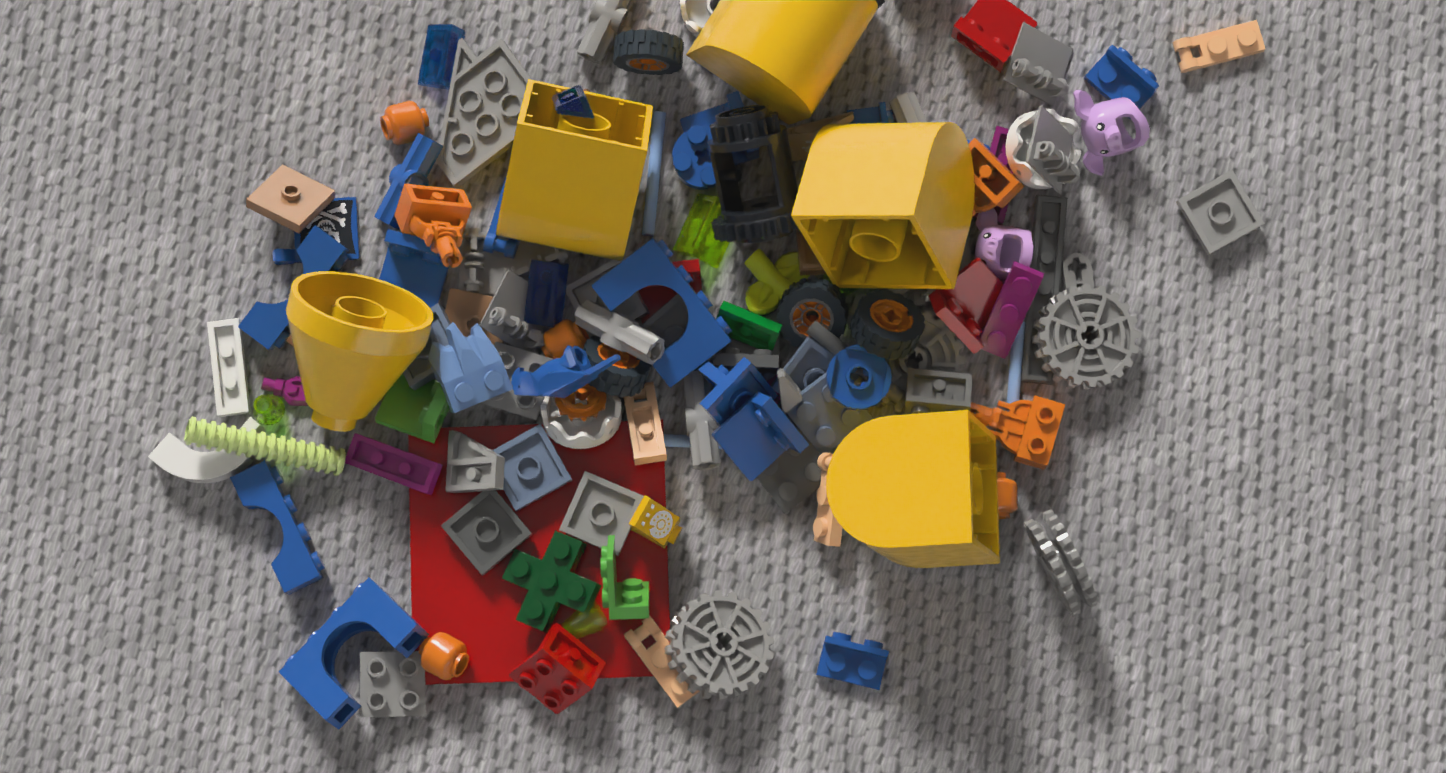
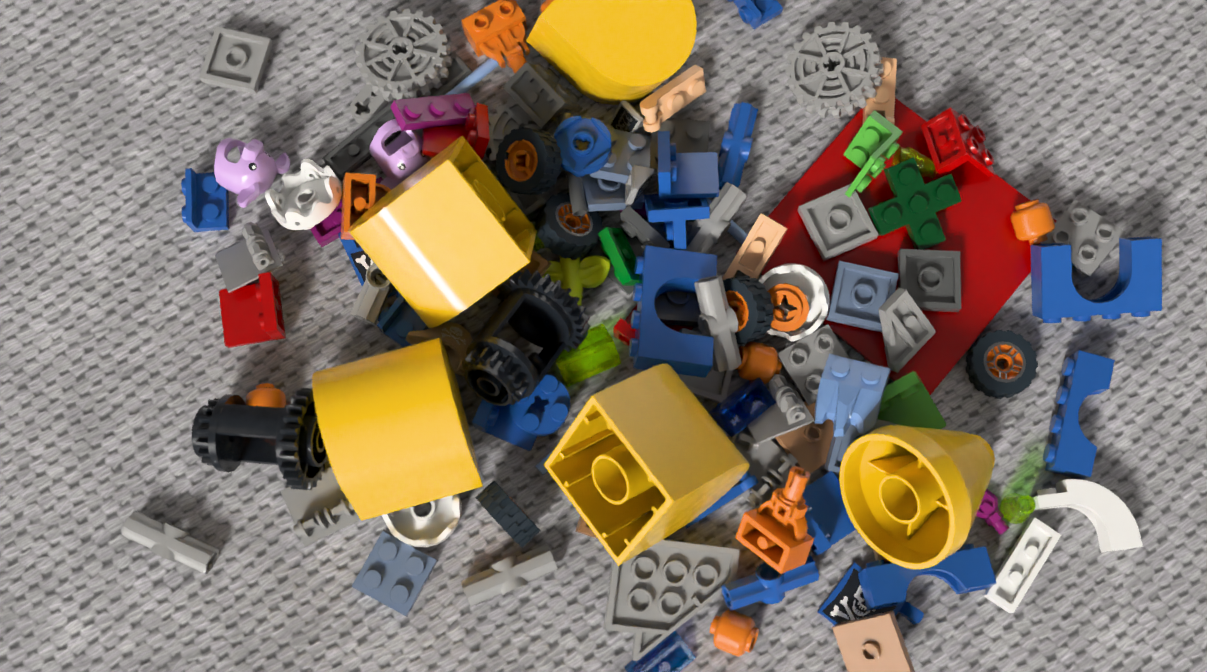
camera: 140 degrees left, 5 degrees down
(264, 446) = (1049, 475): yellowish green piece -> none
(360, 502) = (1018, 367): none -> black wheel
(393, 463) = (957, 384): magenta plate -> none
(559, 376) = (791, 327): blue animal -> none
(572, 103) = (607, 505): clear blue slope -> none
(655, 523) = (808, 180): yellow slope -> none
(743, 509) = (736, 144): none -> blue piece
(1051, 150) = (309, 176): light grey hinge -> none
(1219, 46) = (119, 166): light nougat plate -> none

